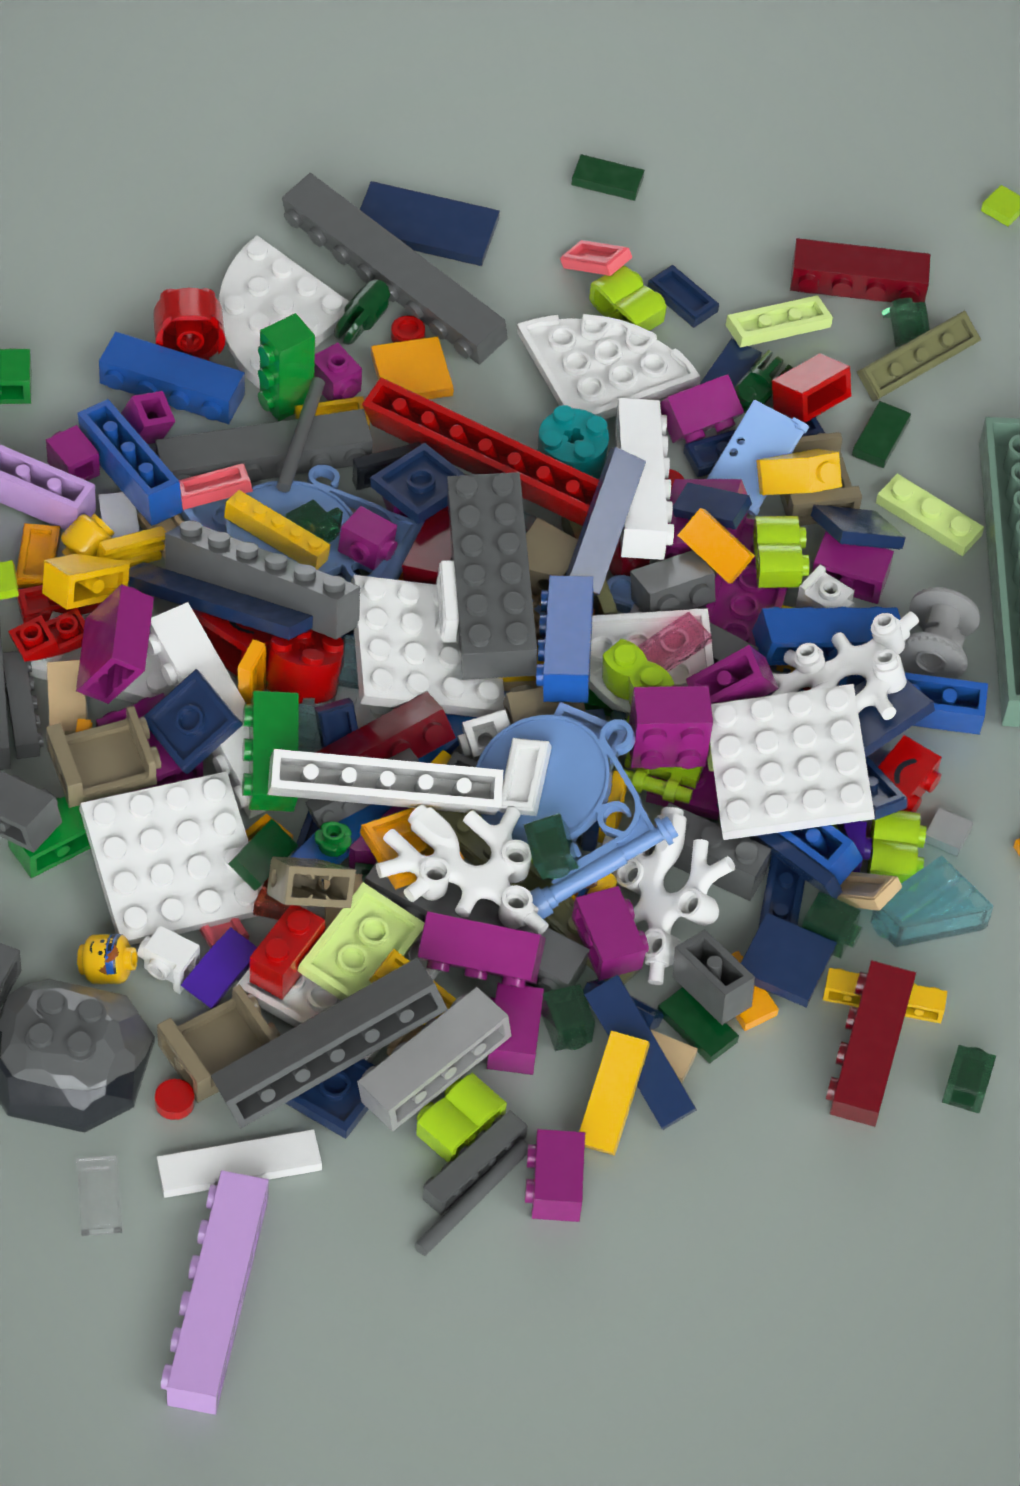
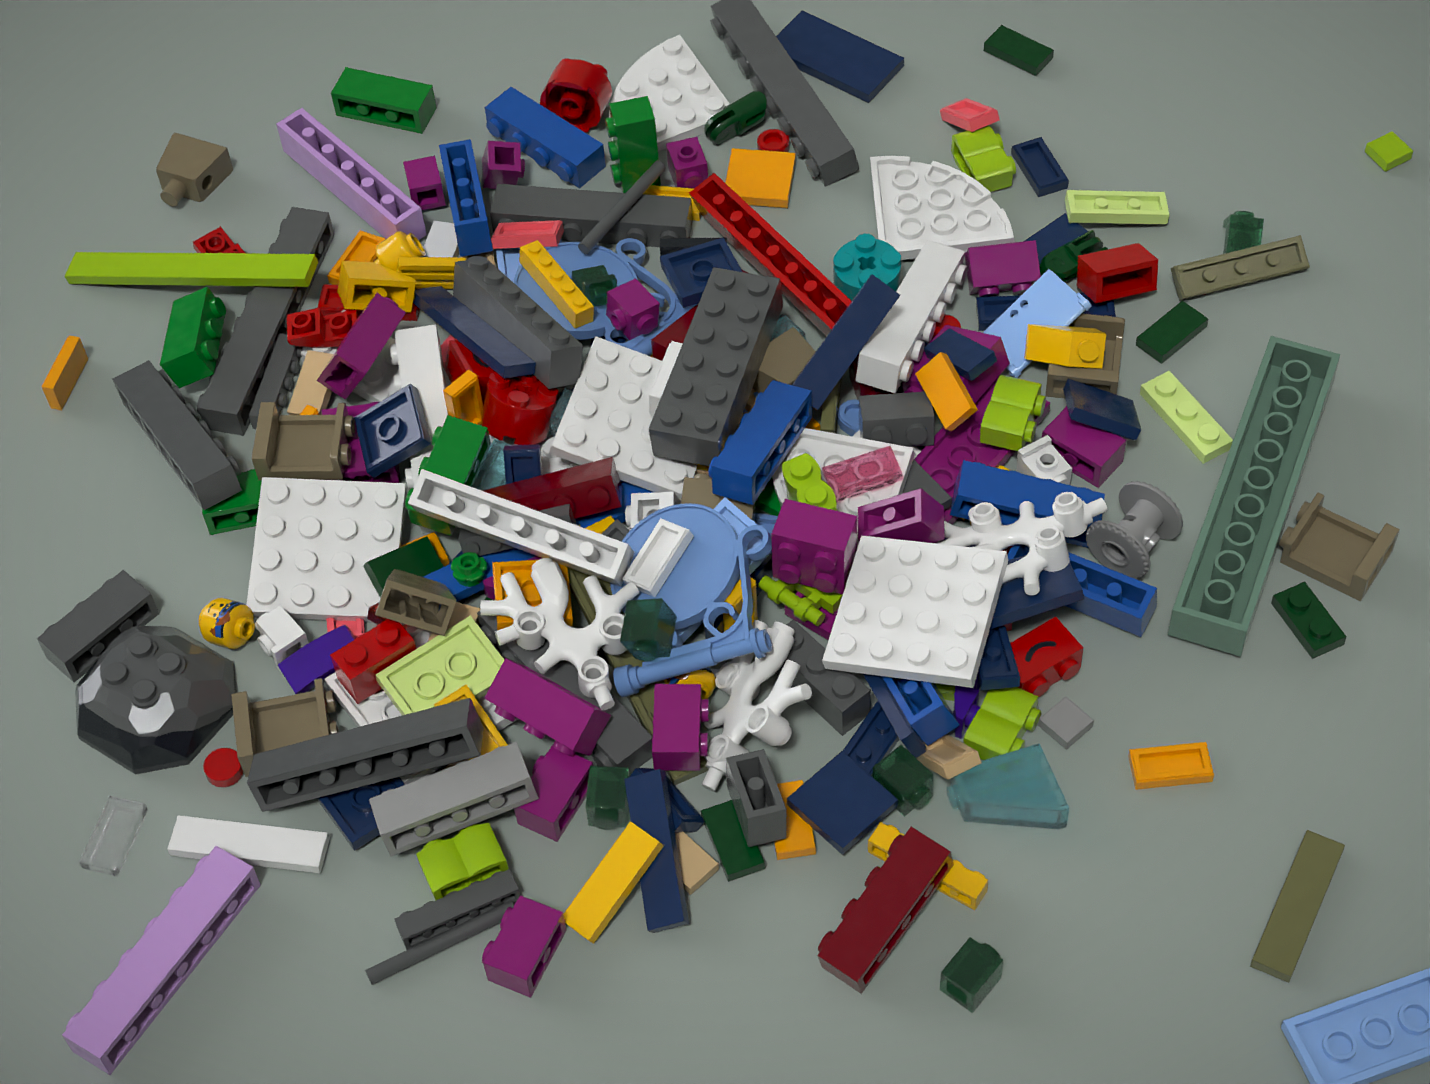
camera: 30 degrees right, 0 degrees up
(859, 271) = (1215, 179): dark red brick -> none

